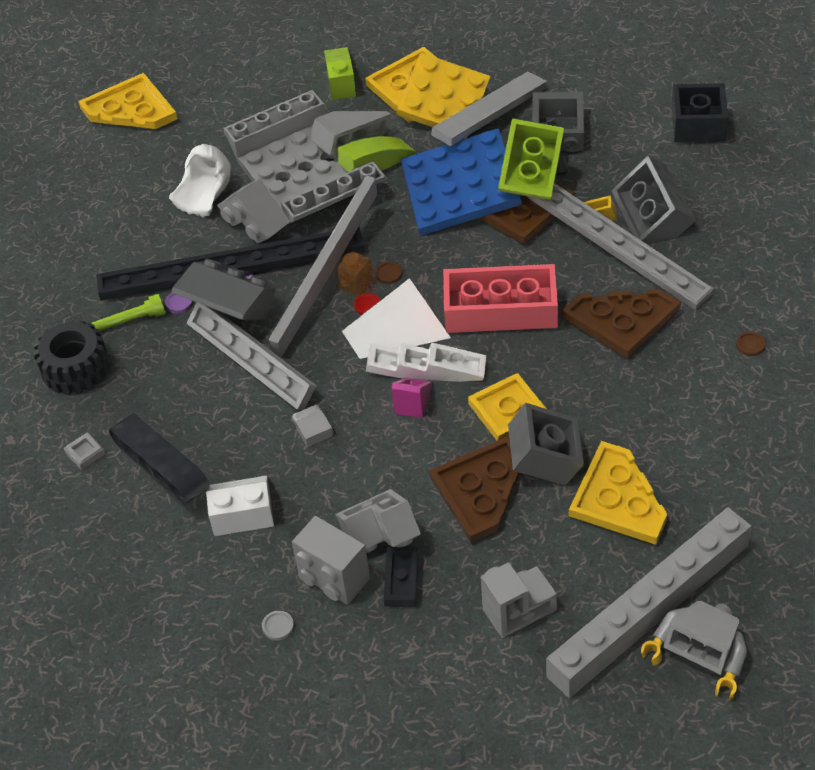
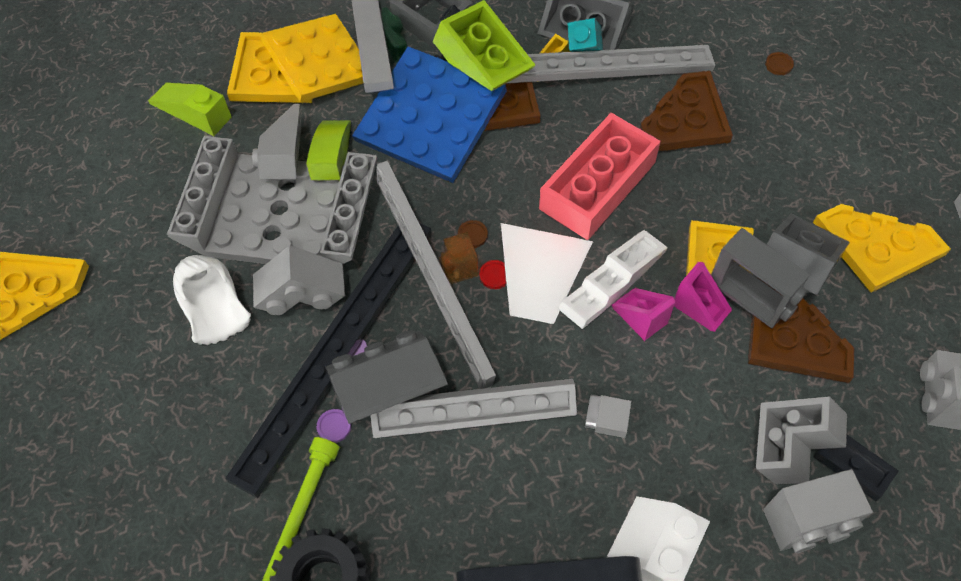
camera: 55 degrees left, 10 degrees up
(453, 415) = (701, 298): none -> dark pink slope
(482, 422) = (768, 266): none -> dark grey window
(513, 109) = (392, 31): none -> clear green slope
(623, 211) = (585, 35): none -> teal brick

